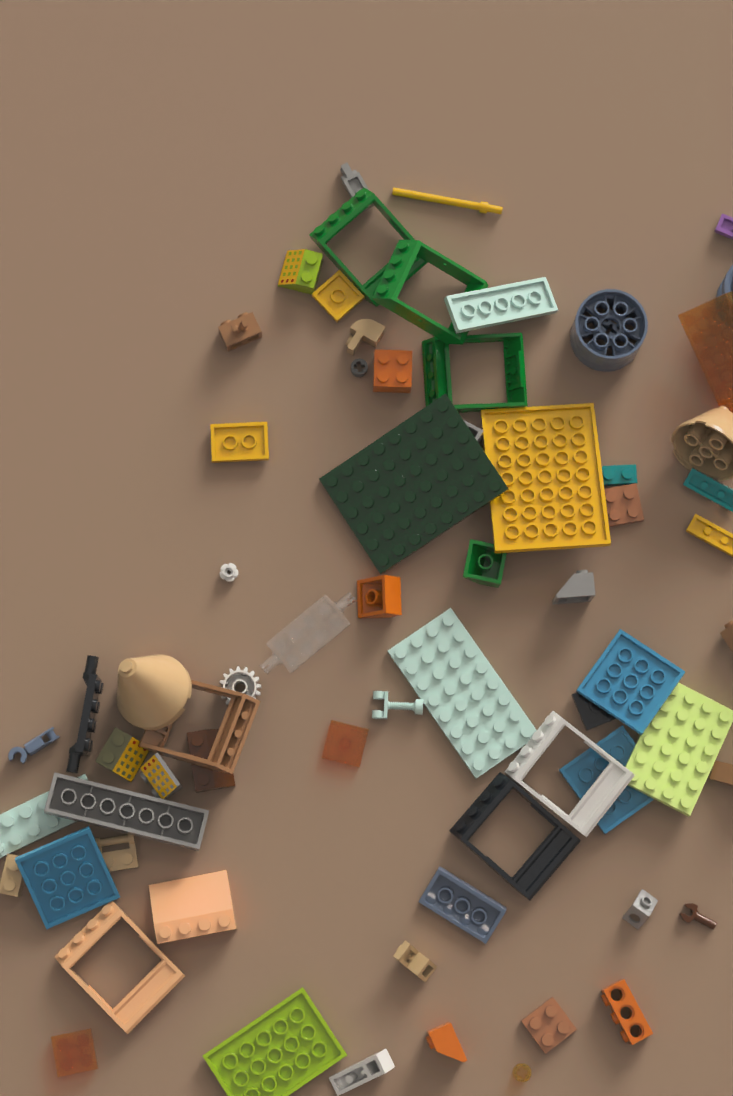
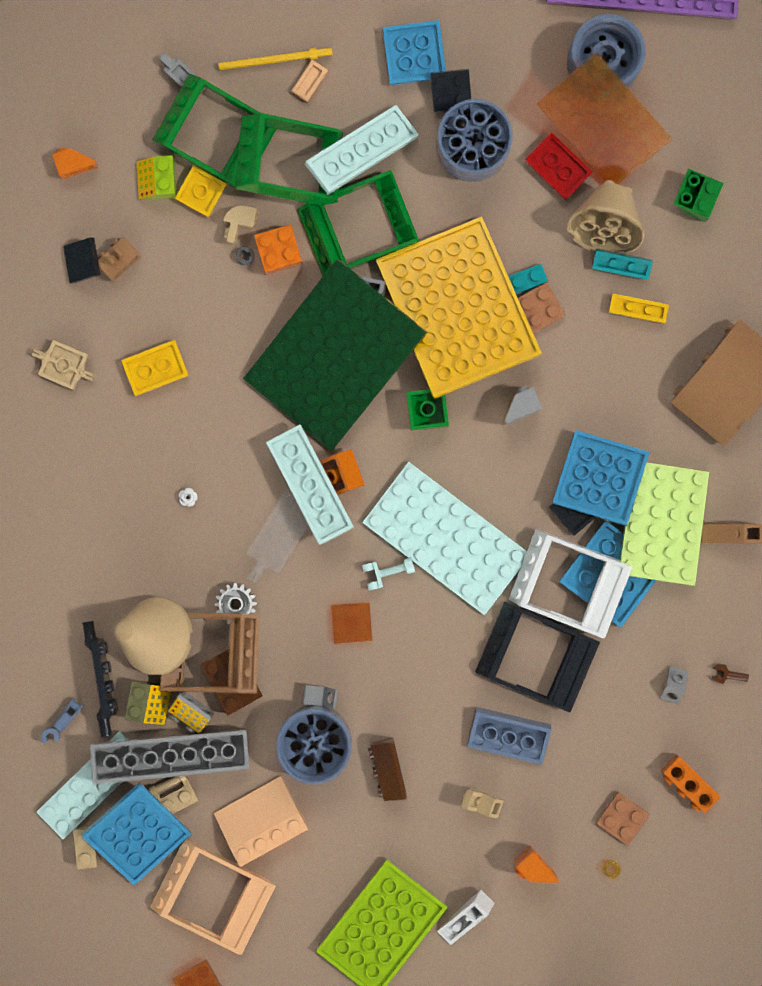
camera: 15 degrees left, 10 degrees up
(154, 411) = (63, 365): none -> tan plate
(205, 321) = (81, 260): none -> black tile
(228, 232) = (72, 162): none -> orange slope
(255, 819) = (308, 773): none -> sand blue wheel
(290, 803) = (319, 696): none -> light grey bracket
(333, 897) = (387, 770): none -> reddish brown slope
(350, 596) = (310, 484): none -> light aqua plate
(472, 231) = (309, 81): none -> light nougat tile
(578, 236) = (413, 52): none -> dark azure plate
(600, 276) = (449, 88): none -> black plate
(680, 381) = (558, 166): none -> red plate

